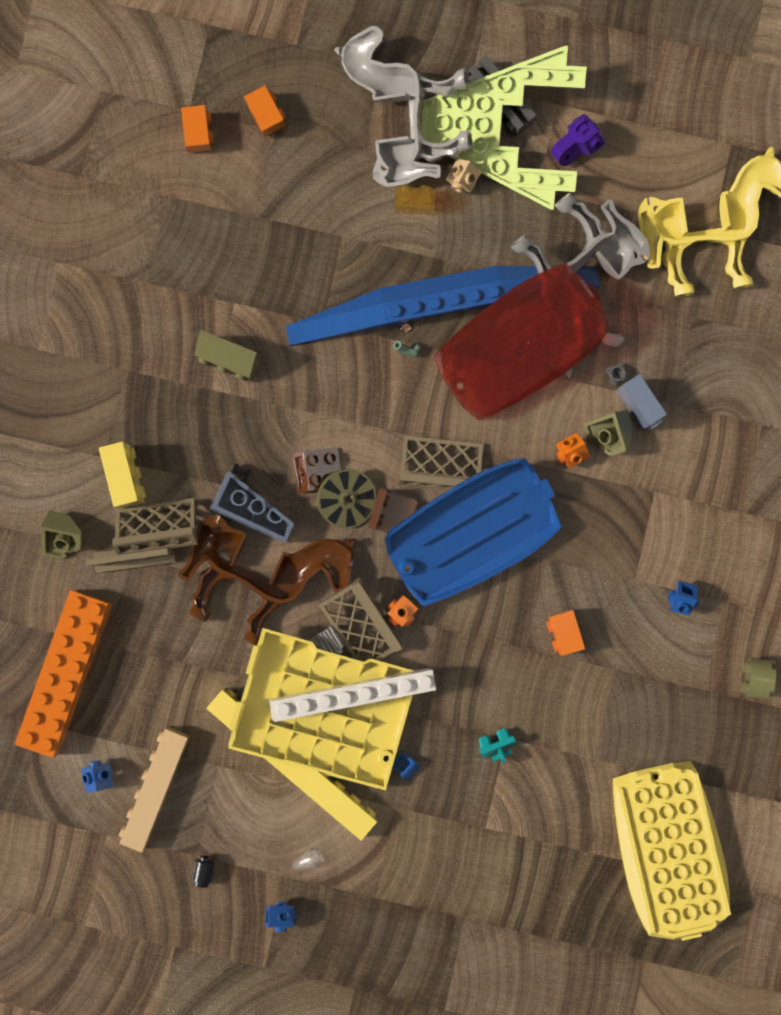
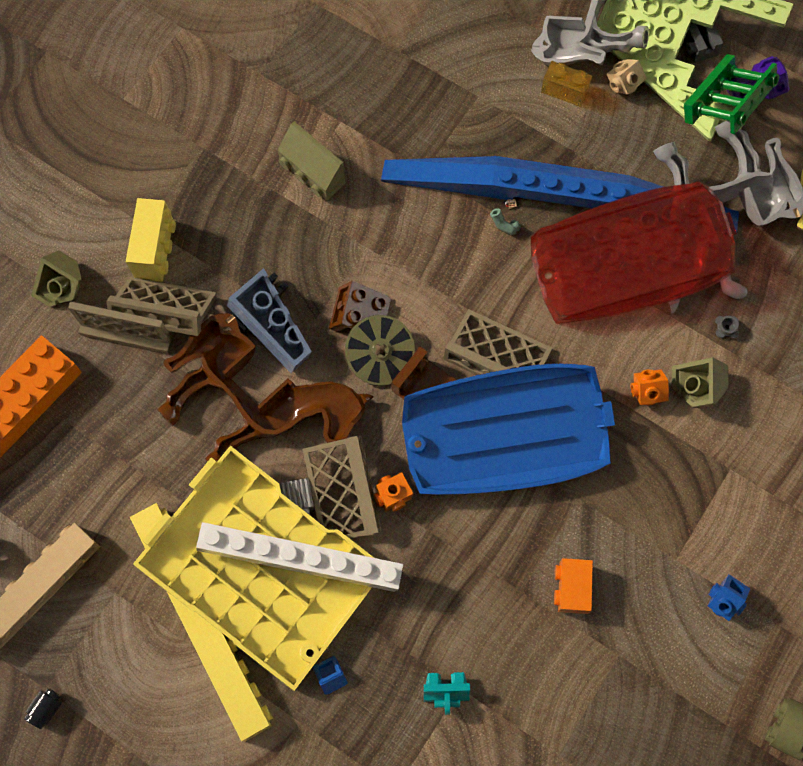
camera: 25 degrees right, 15 degrees down
(308, 860) = (172, 743): clear cone -> none
(544, 160) = (721, 79): none -> green fence
(641, 403) = (746, 361): sand blue brick -> none

